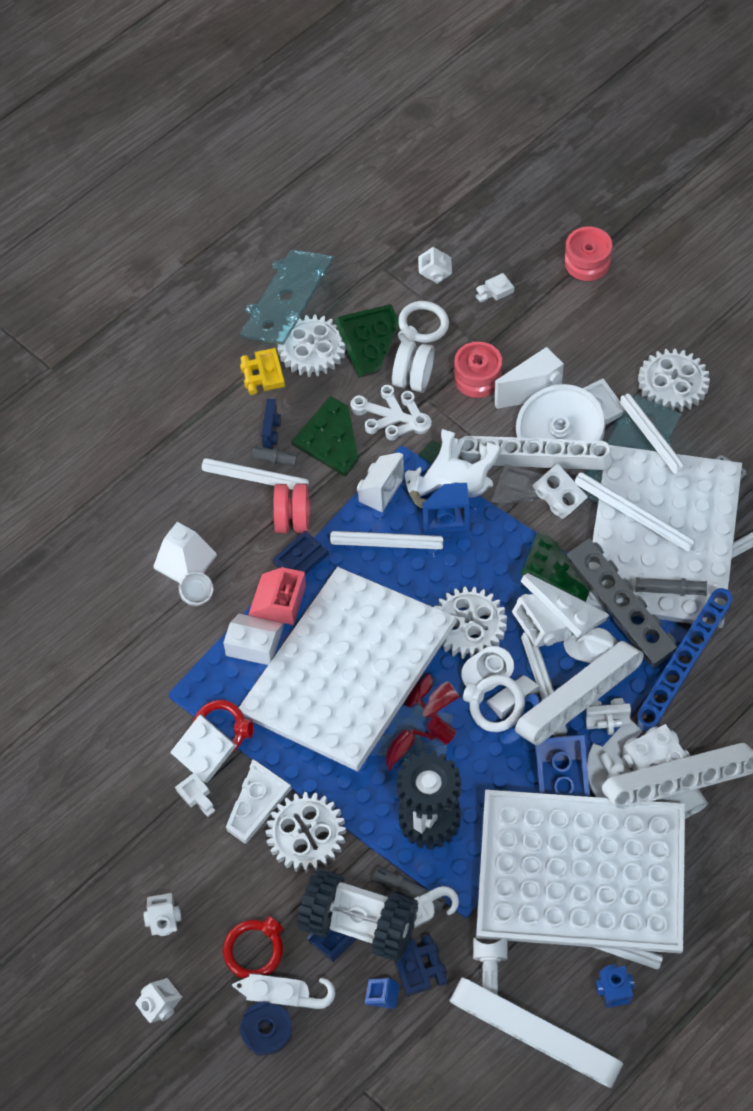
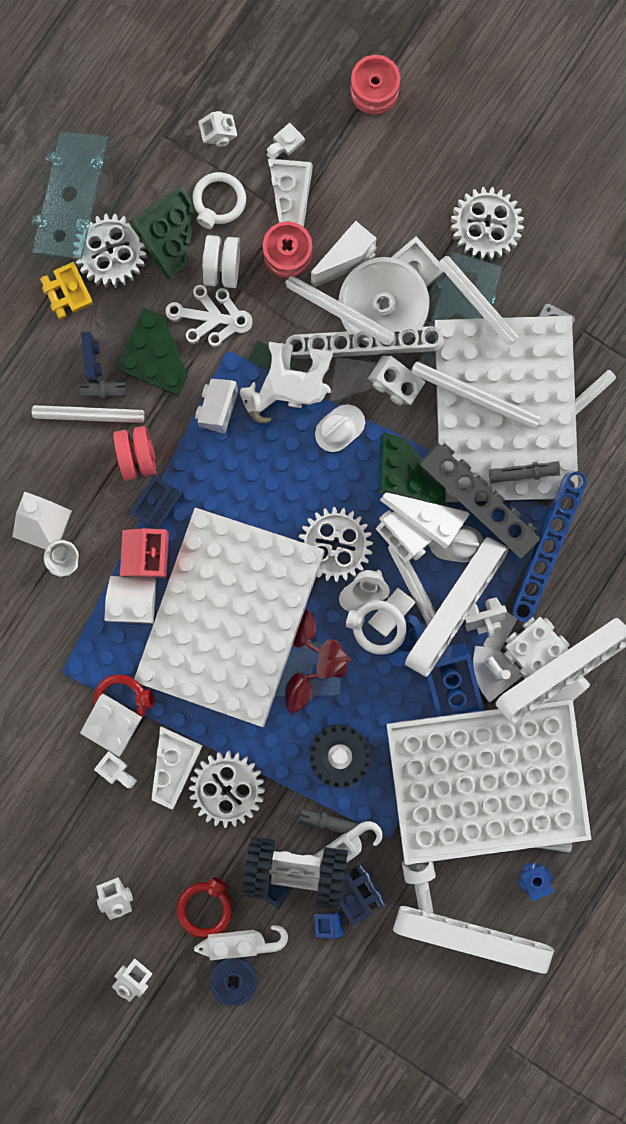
camera: 15 degrees left, 25 degrees up
(386, 540) = (236, 467): white axle -> none
(447, 510) = (292, 426): blue slope -> none
(493, 321) = (291, 188): none -> white wing
(495, 525) = (339, 428): none -> white piece
(517, 420) = (340, 310): none -> white axle

